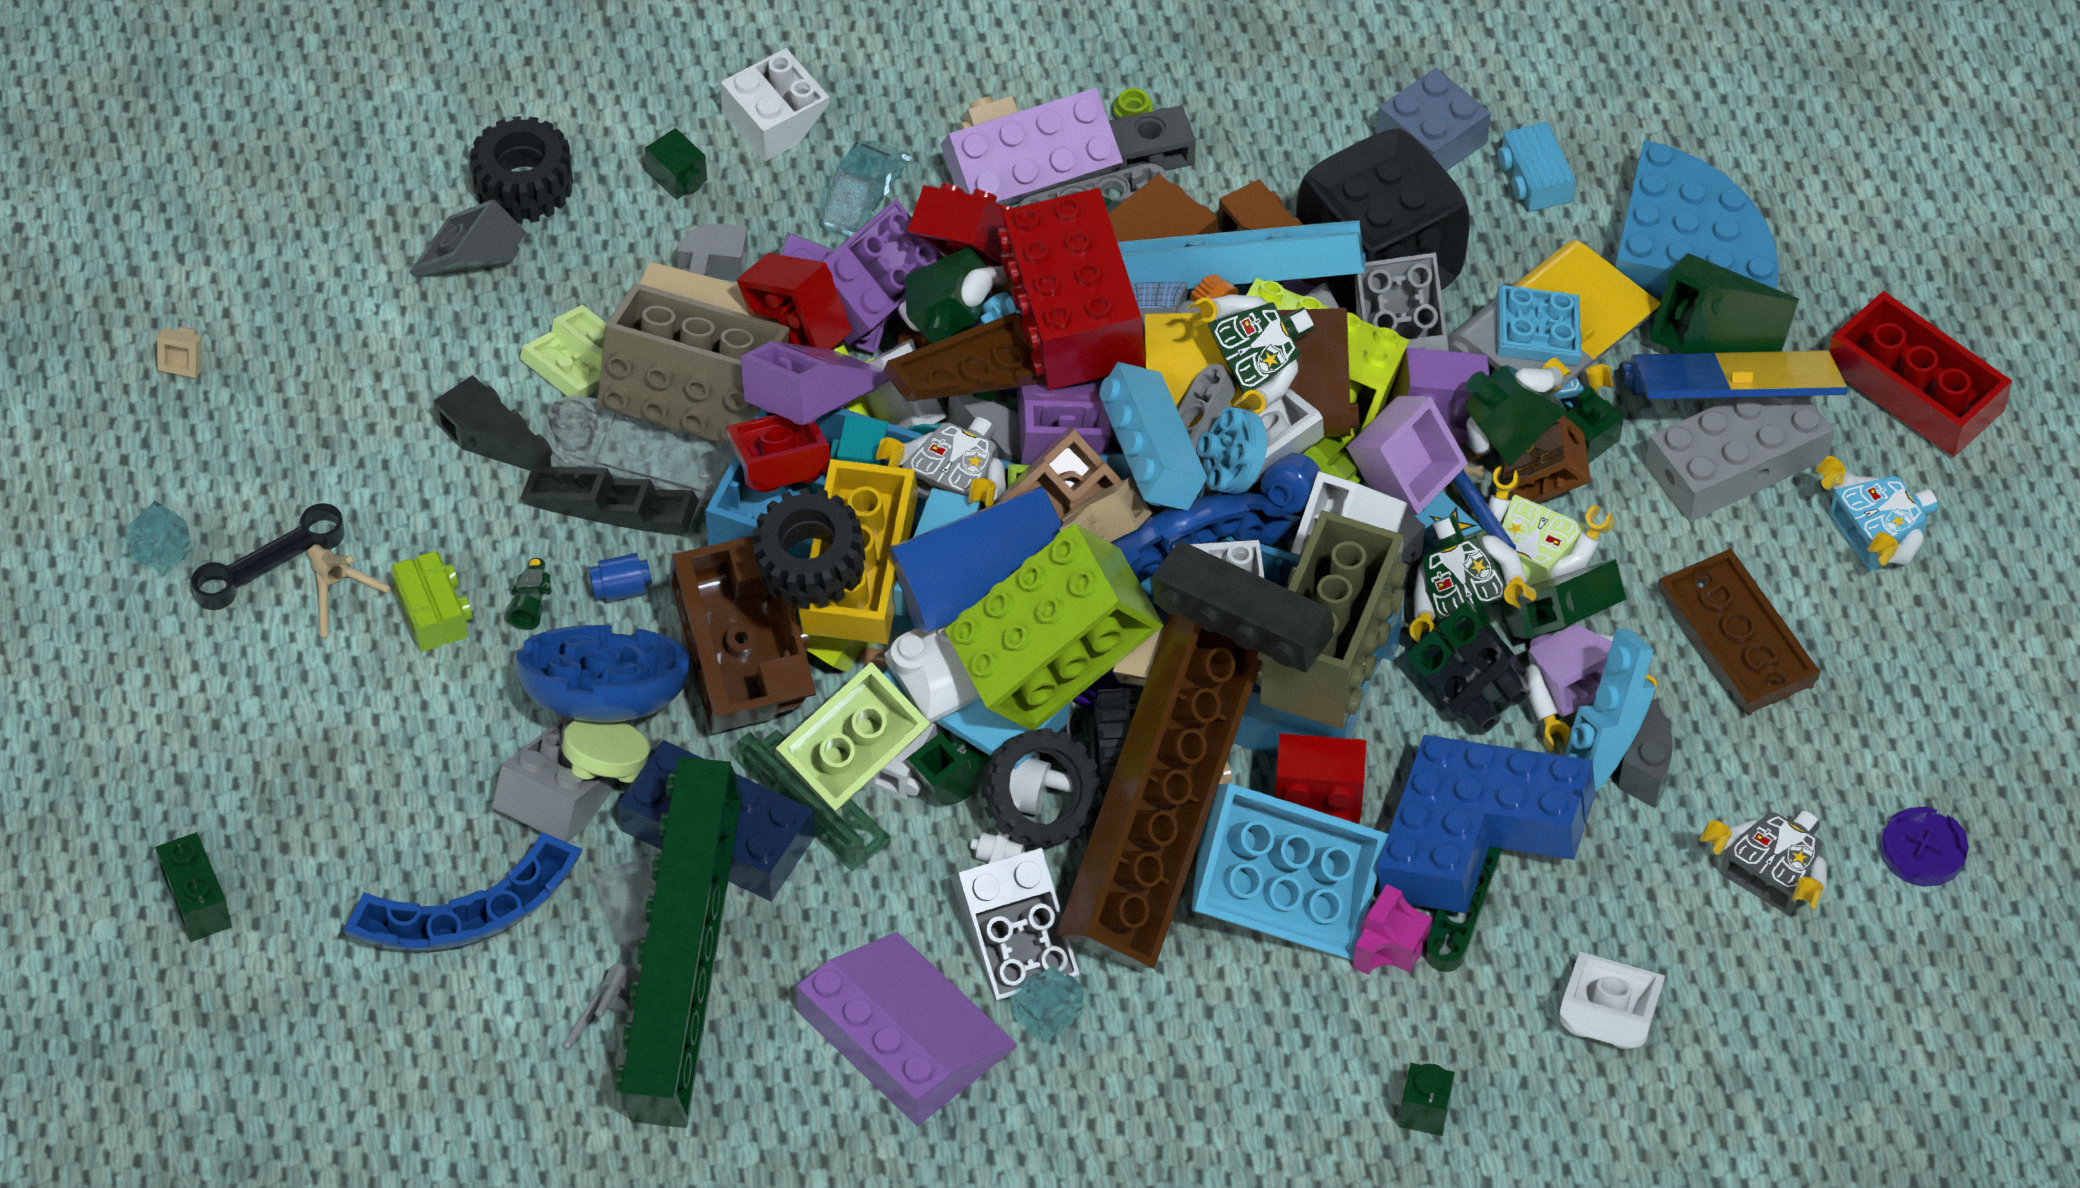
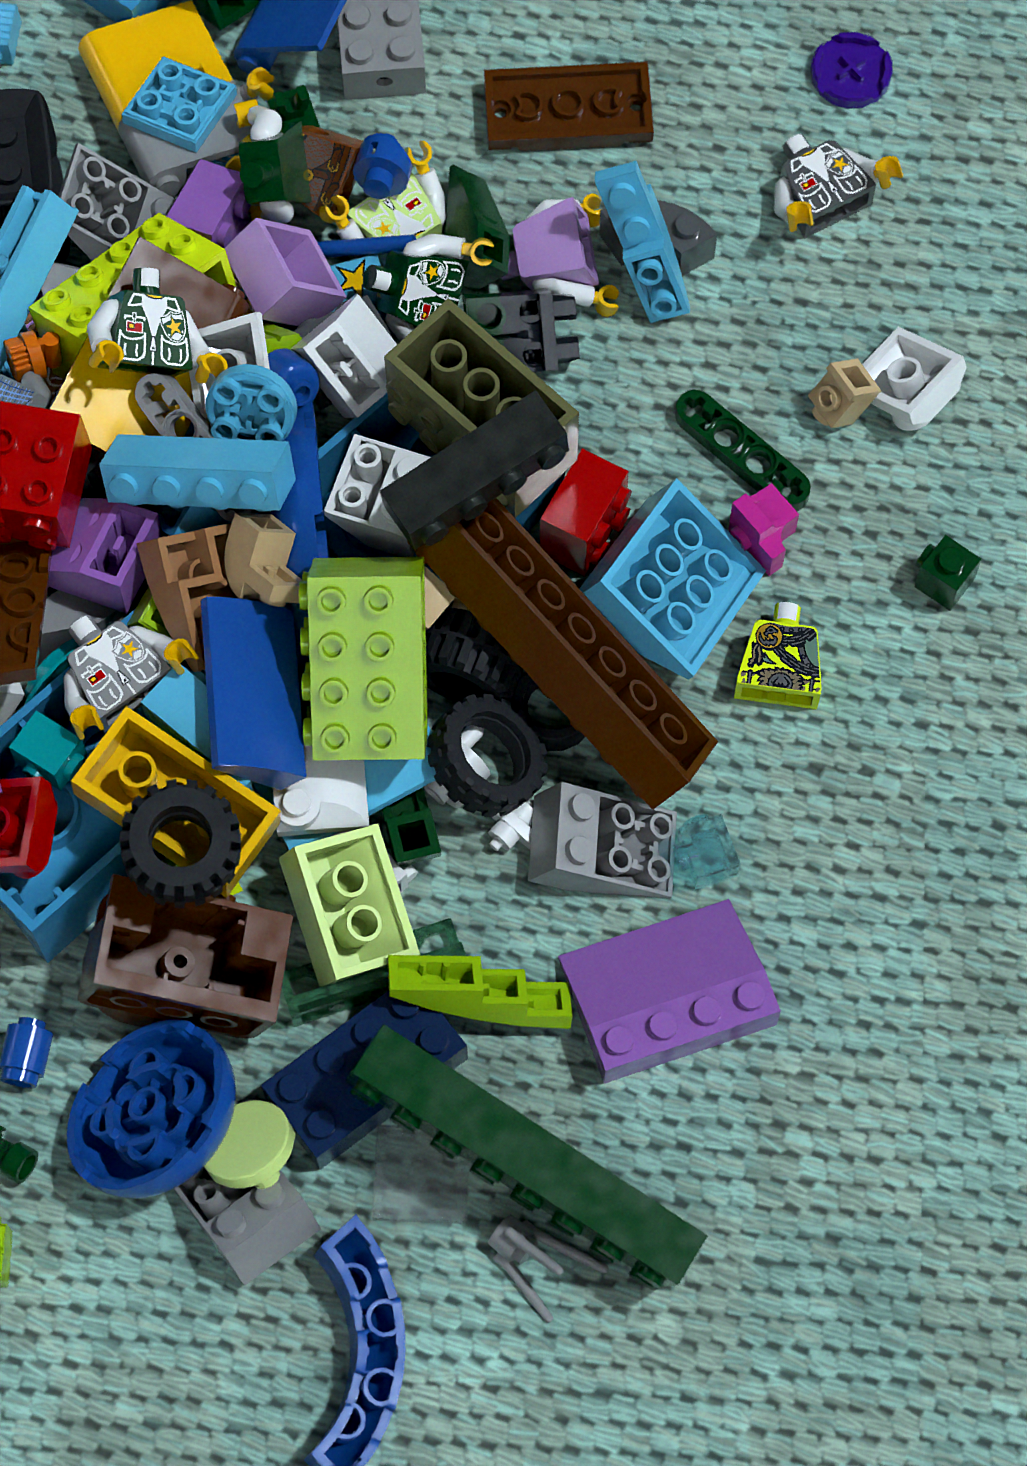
camera: 65 degrees left, 15 degrees up
(821, 866) = (466, 990): none -> lime slope
(1265, 997) = (781, 661): none -> torso
(1475, 799) = (661, 403): blue piece -> none
(1556, 942) = (837, 399): none -> tan brick
(1562, 493) = (386, 170): none -> blue piece

